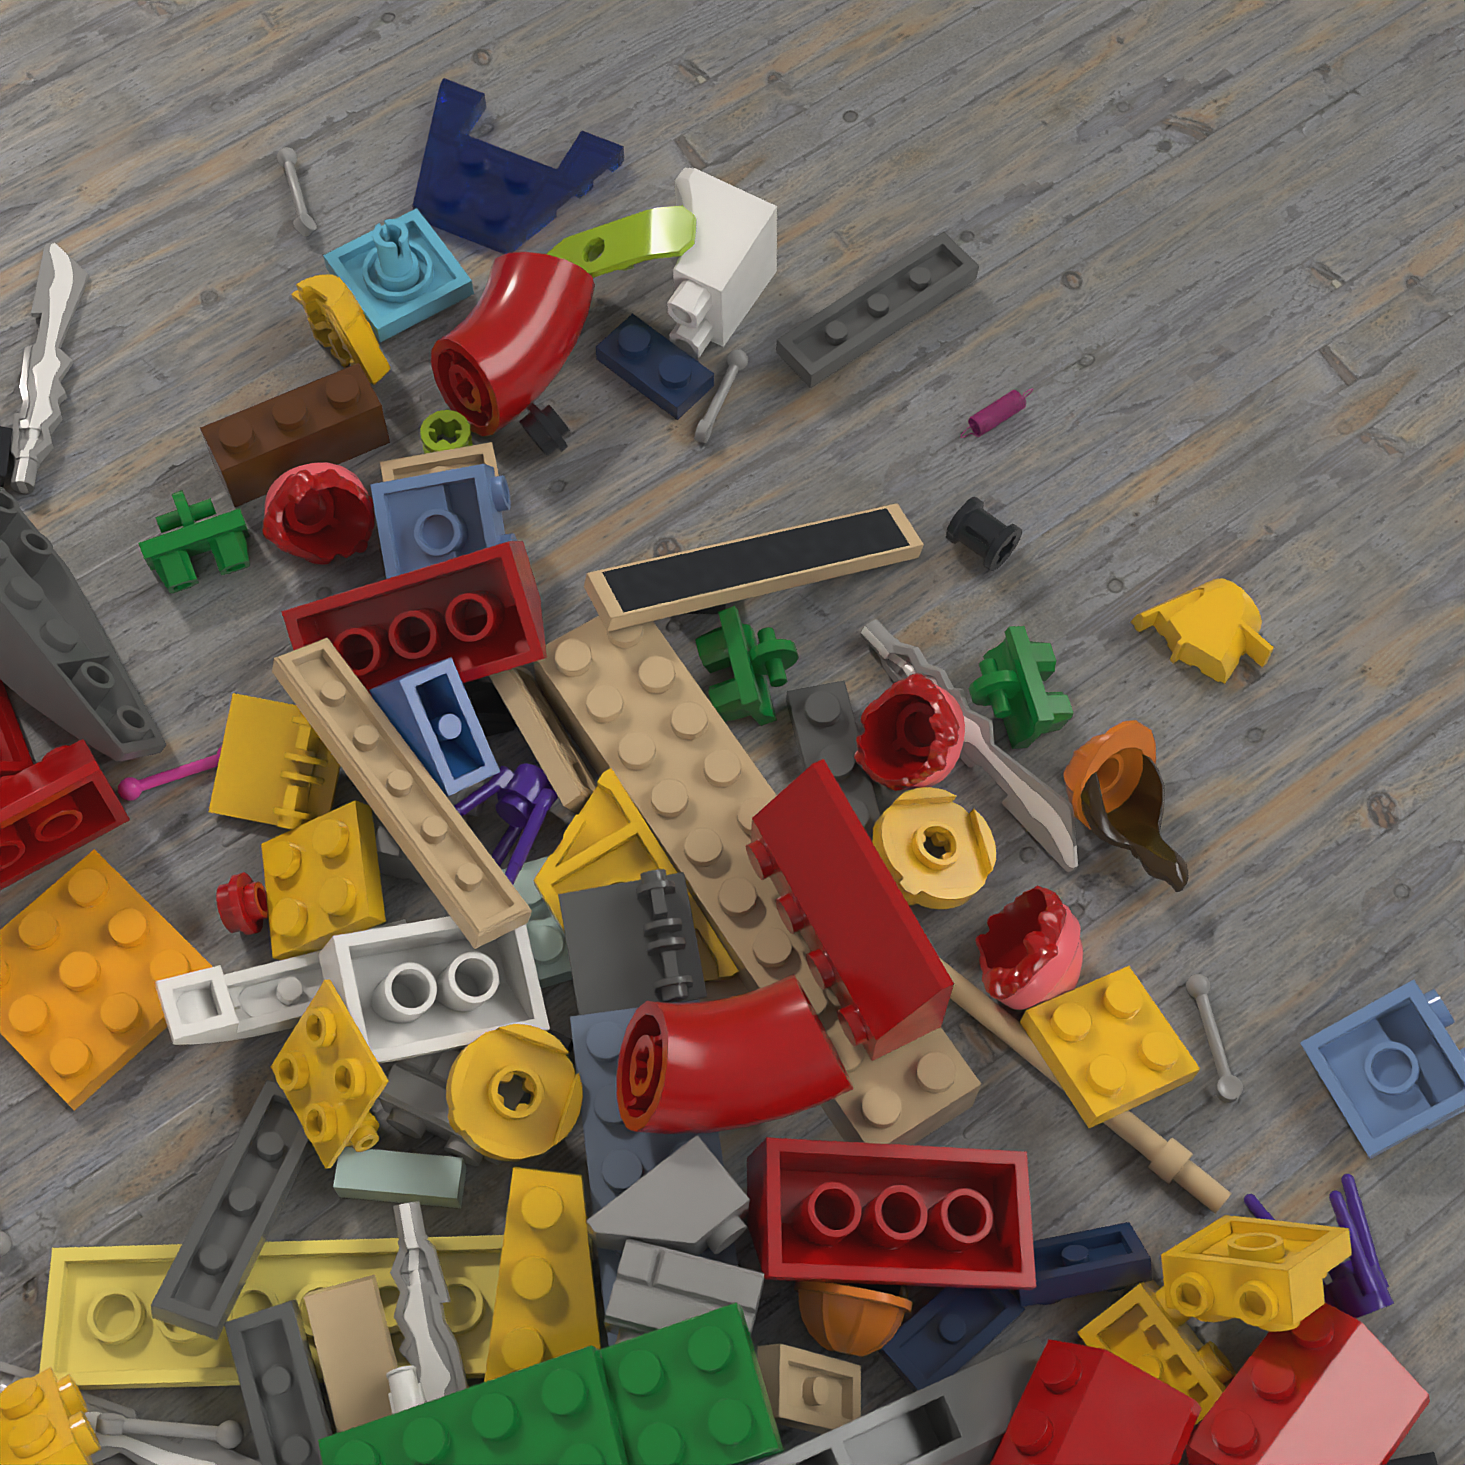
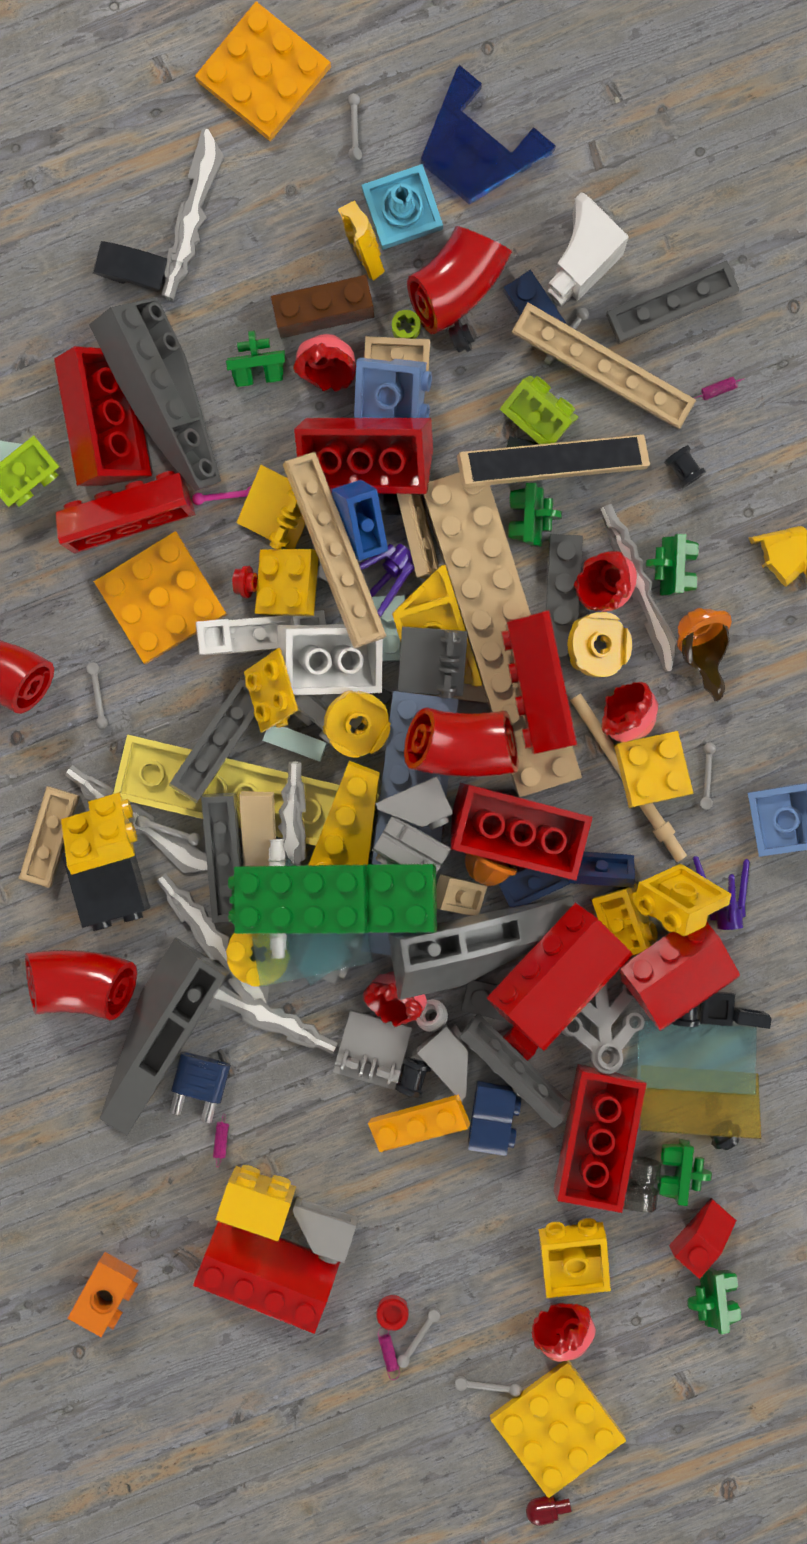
camera: 20 degrees right, 25 degrees up
(131, 151) = (263, 71): none -> light orange plate
(630, 240) = (539, 232): lime piece -> none
(703, 508) = (539, 411): none -> lime bracket
(796, 417) = (603, 366): none -> tan tile

